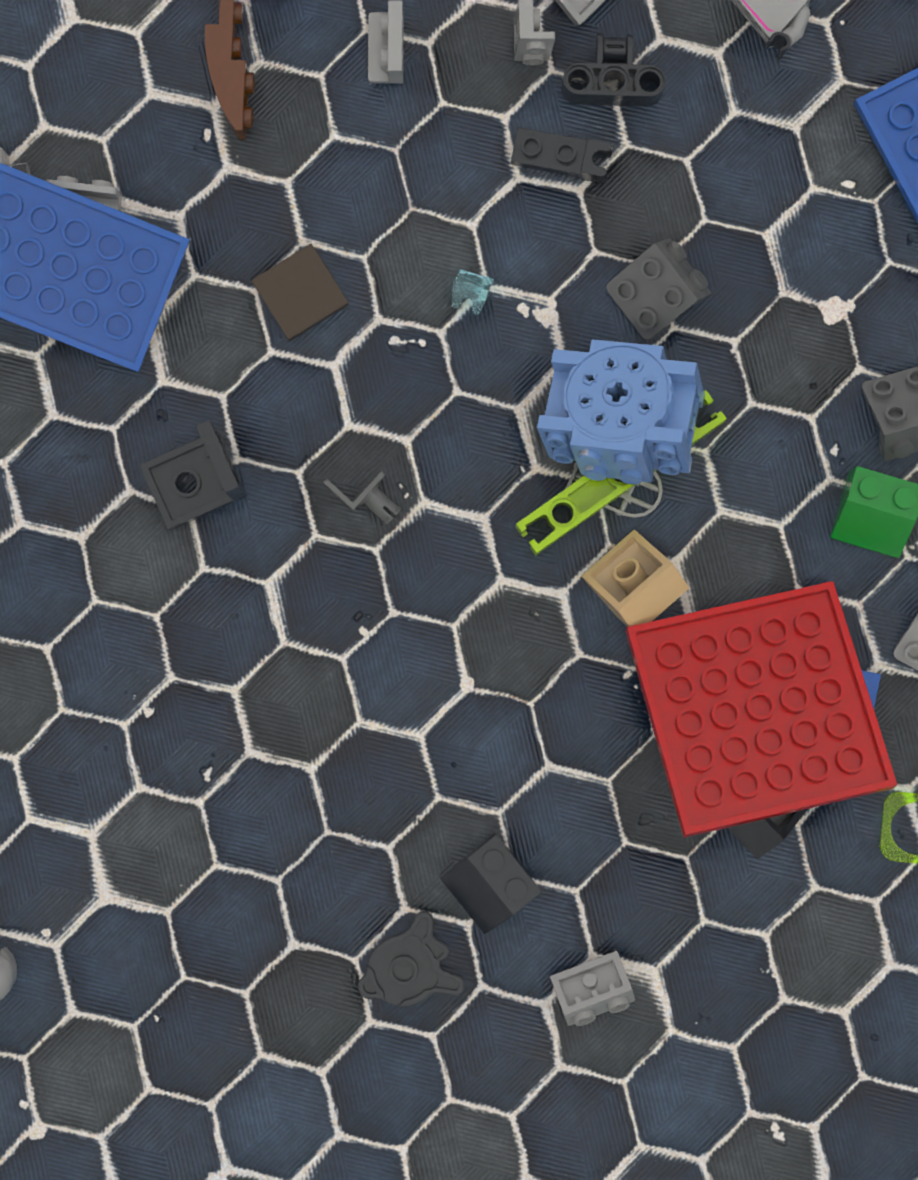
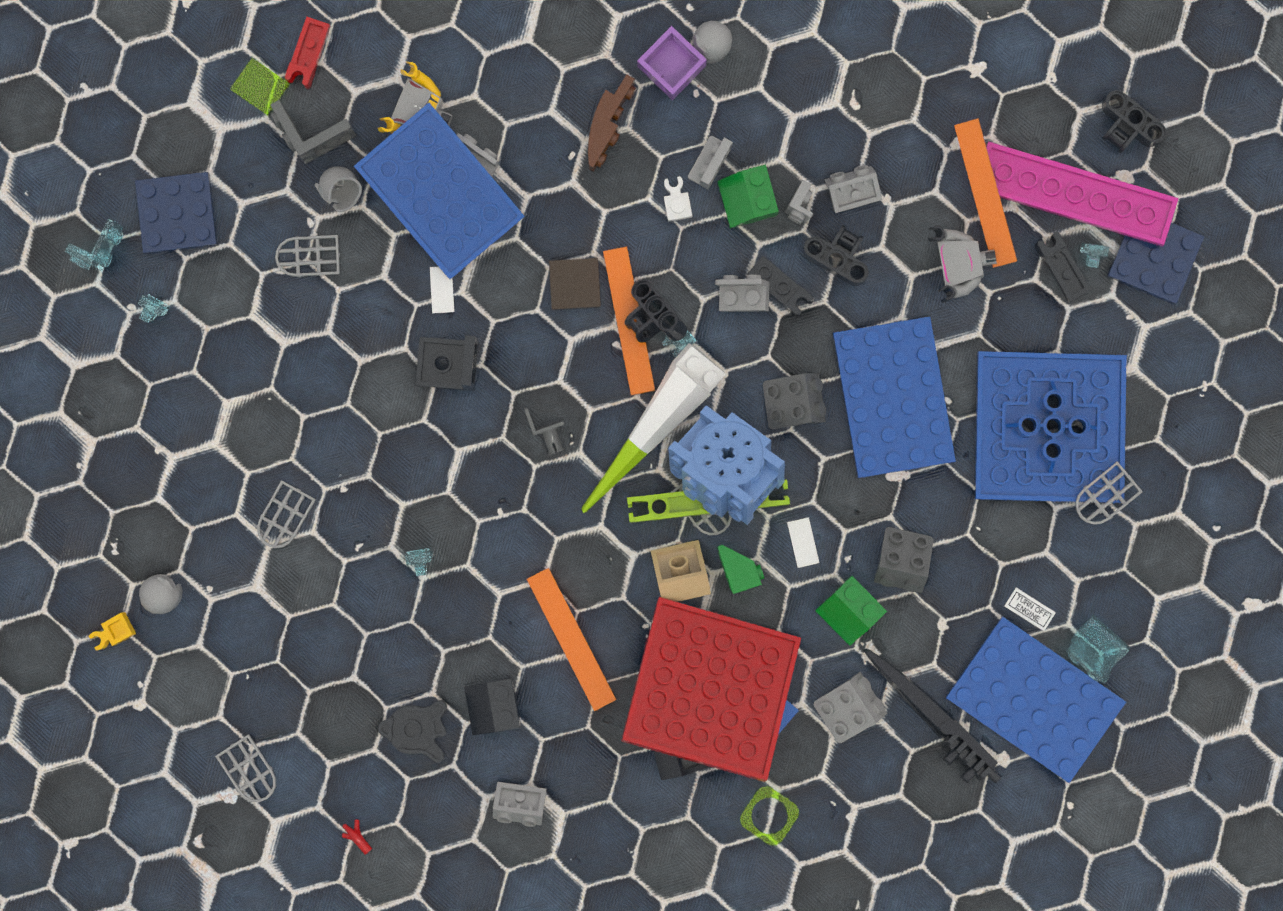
camera: 30 degrees right, 0 degrees up
(81, 804) = (281, 505): none -> light grey window
(135, 394) = (441, 291): none -> white sticker
(208, 1140) = (250, 759): none -> light grey window
(293, 747) = (419, 559): none -> clear light blue tile
(373, 121) = (678, 203): none -> white plate
(394, 301) = (634, 352): none -> orange tile
(408, 1146) = (356, 836): none -> red bar
(422, 281) = (650, 318): none -> black piece
(459, 62) = (748, 196): none -> green slope
(510, 355) = (679, 394): none -> white plate
(520, 187) = (743, 294): none -> light grey bracket
(543, 743) = (571, 639): none -> orange tile
(709, 537) = (739, 570): none -> green slope
(767, 460) = (803, 542): none -> white sticker
(780, 216) = (894, 397): none -> blue plate

